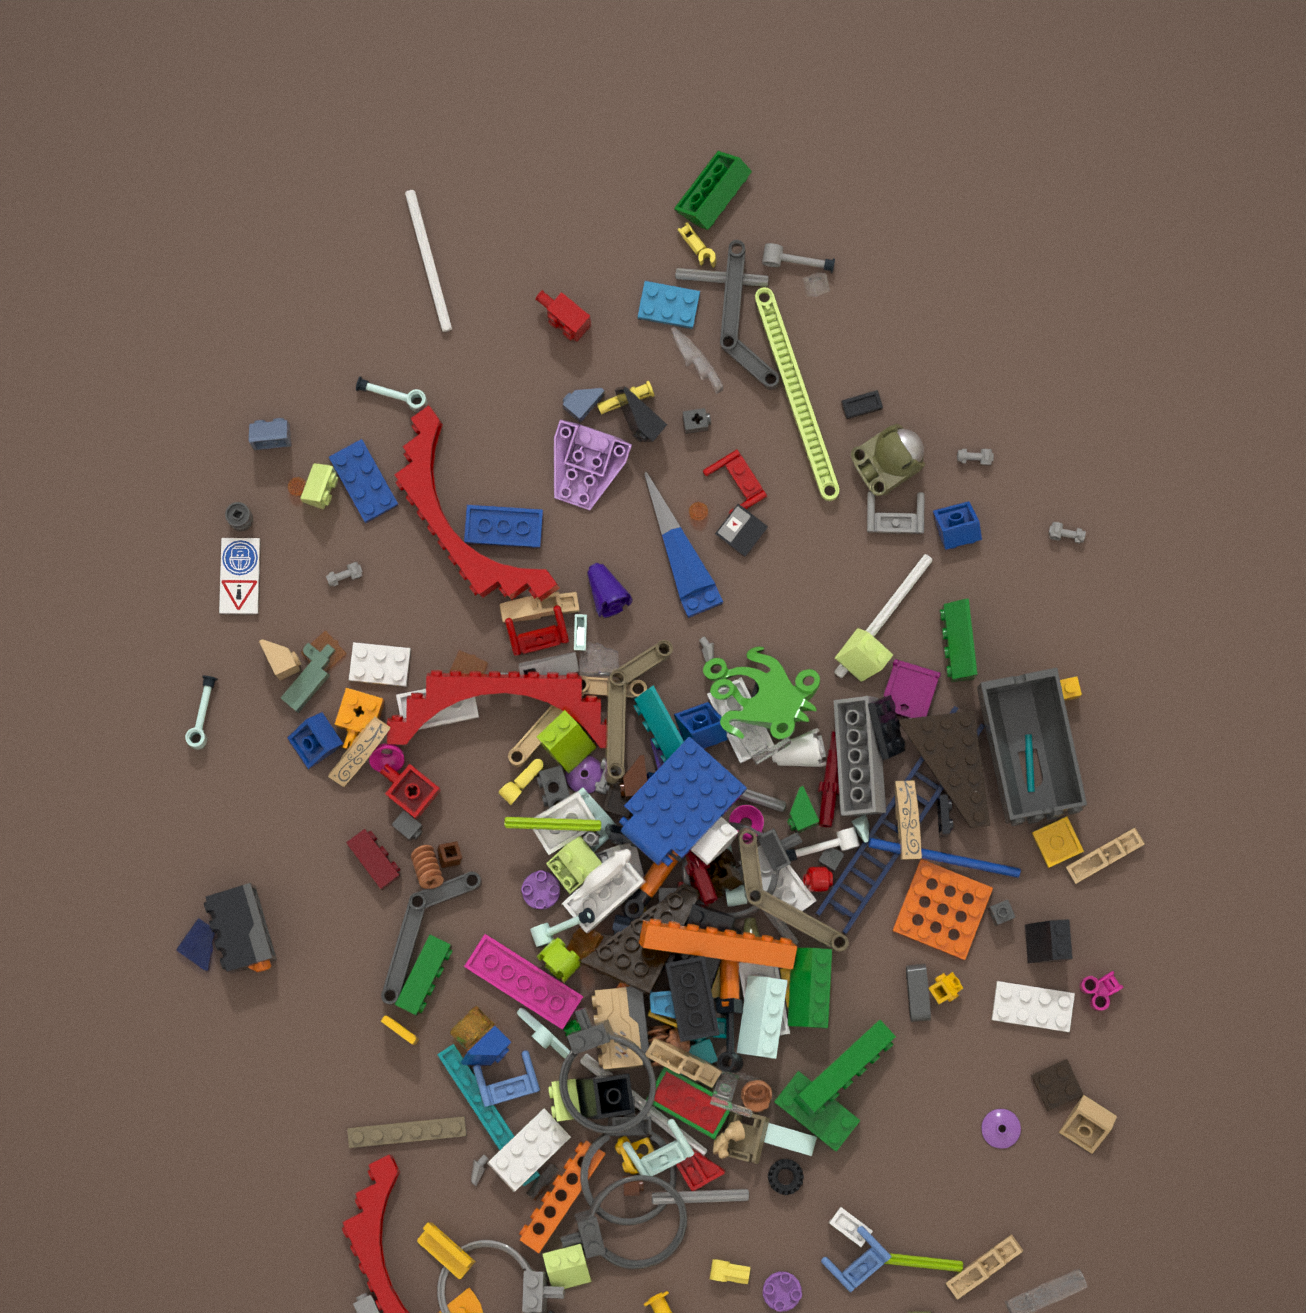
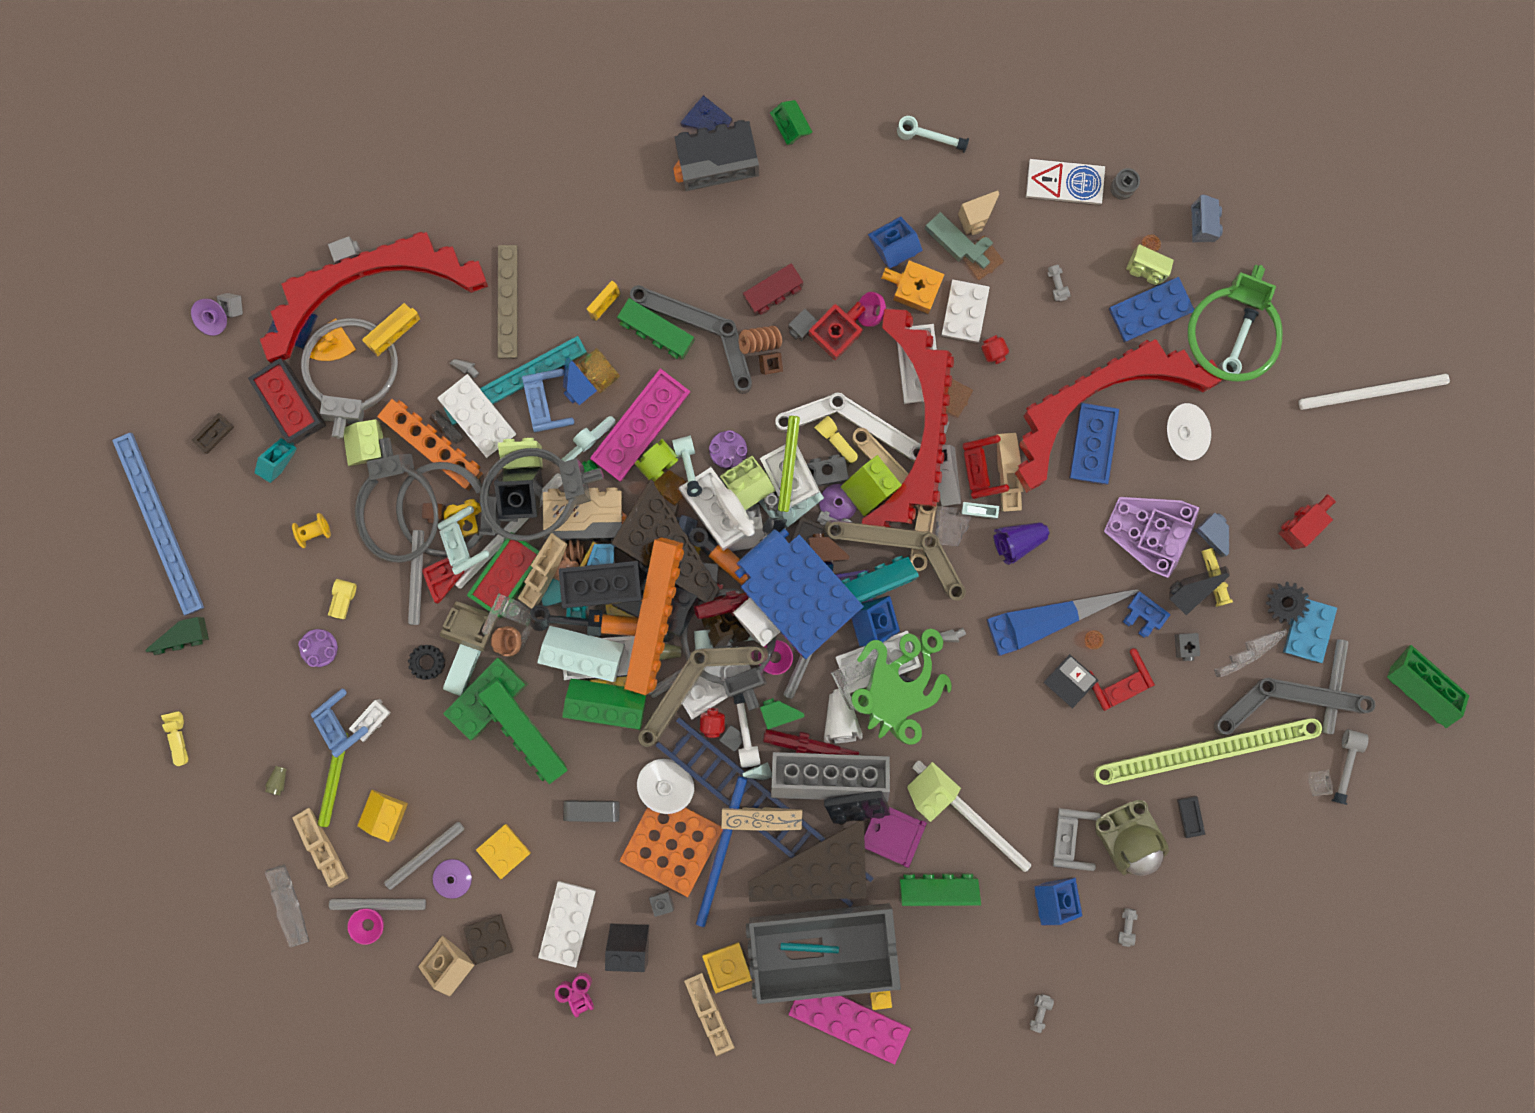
camera: 95 degrees right, 5 degrees up
(197, 857) = (790, 121): none -> green panel
(339, 386) = (1252, 292): none -> bright green brick
(359, 751) = (879, 282): tan slope -> none
(417, 631) = (995, 349): none -> red head
(484, 435) = (1189, 431): none -> white hat
(495, 763) = (856, 415): none -> white piece
(653, 322) = (1296, 610): none -> black gear
(665, 460) = (1148, 611): none -> blue plate
(697, 245) = (1370, 665): light yellow piece -> none
(735, 1132) = (463, 602): tan arm -> none
(885, 920) = (665, 786): none -> white hat
(944, 807) = (753, 856): black plate -> none
(945, 1206) = (382, 816): none -> yellow slope
(946, 987) = (592, 839): yellow brick -> none
(968, 1078) = (503, 851): none -> yellow plate
(980, 1158) = (424, 855): none -> light grey axle
(1034, 1201) = (377, 904): none -> light grey axle
(1068, 1209) = (359, 933): none -> dark pink piece
(1098, 714) = (854, 1025): none -> dark pink plate

